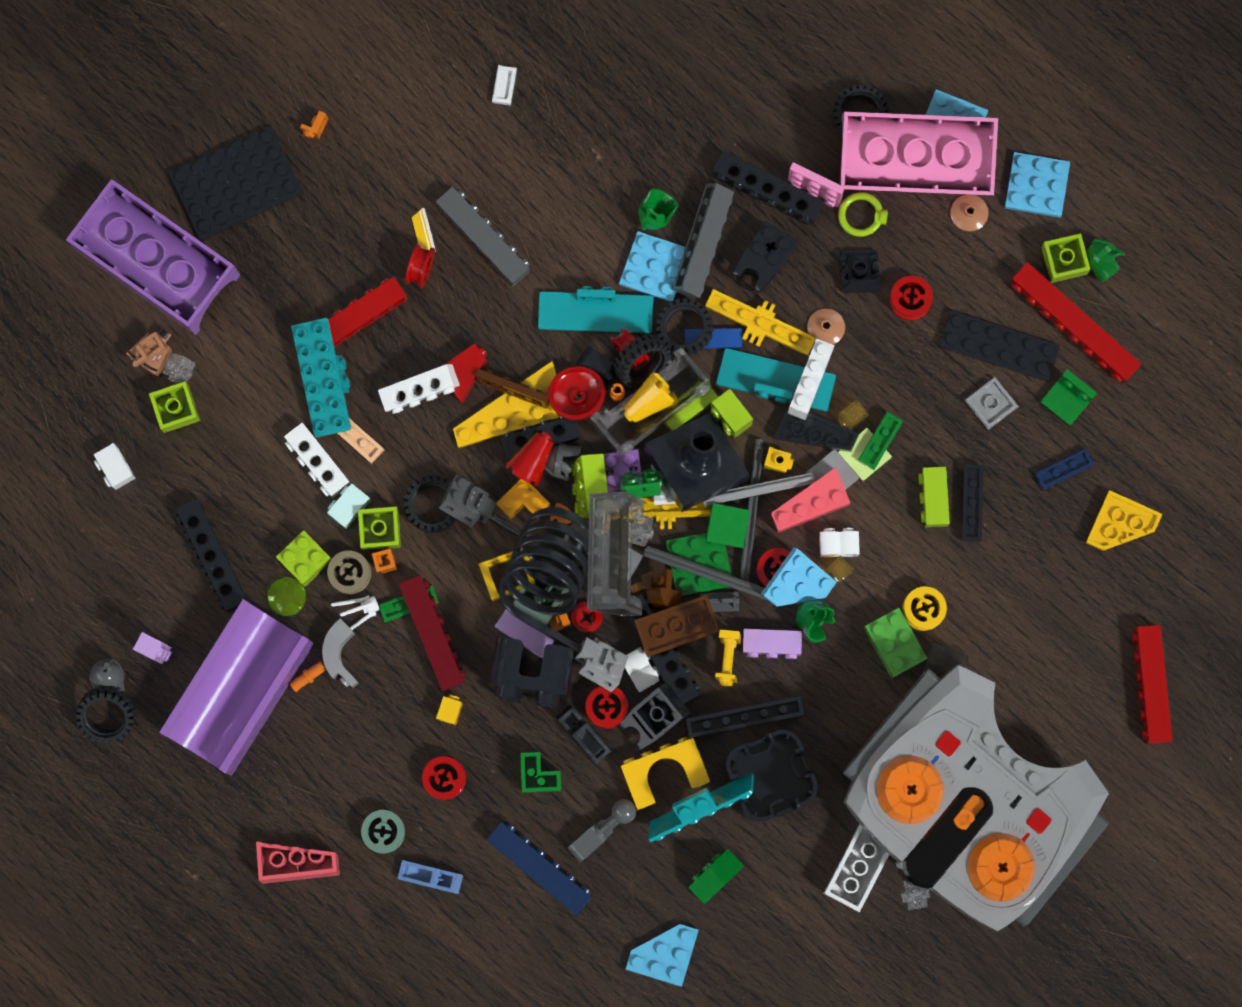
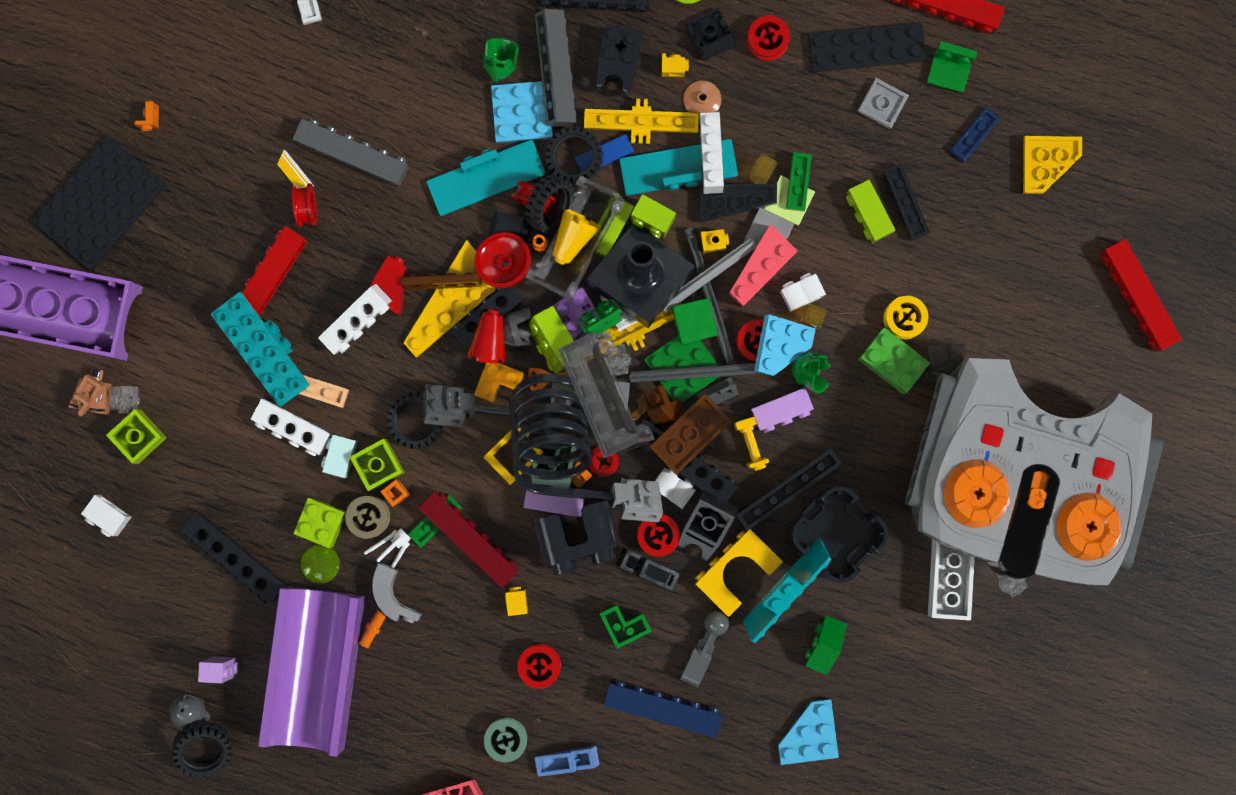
camera: 30 degrees left, 5 degrees up
(813, 285) = (674, 66): none -> yellow brick

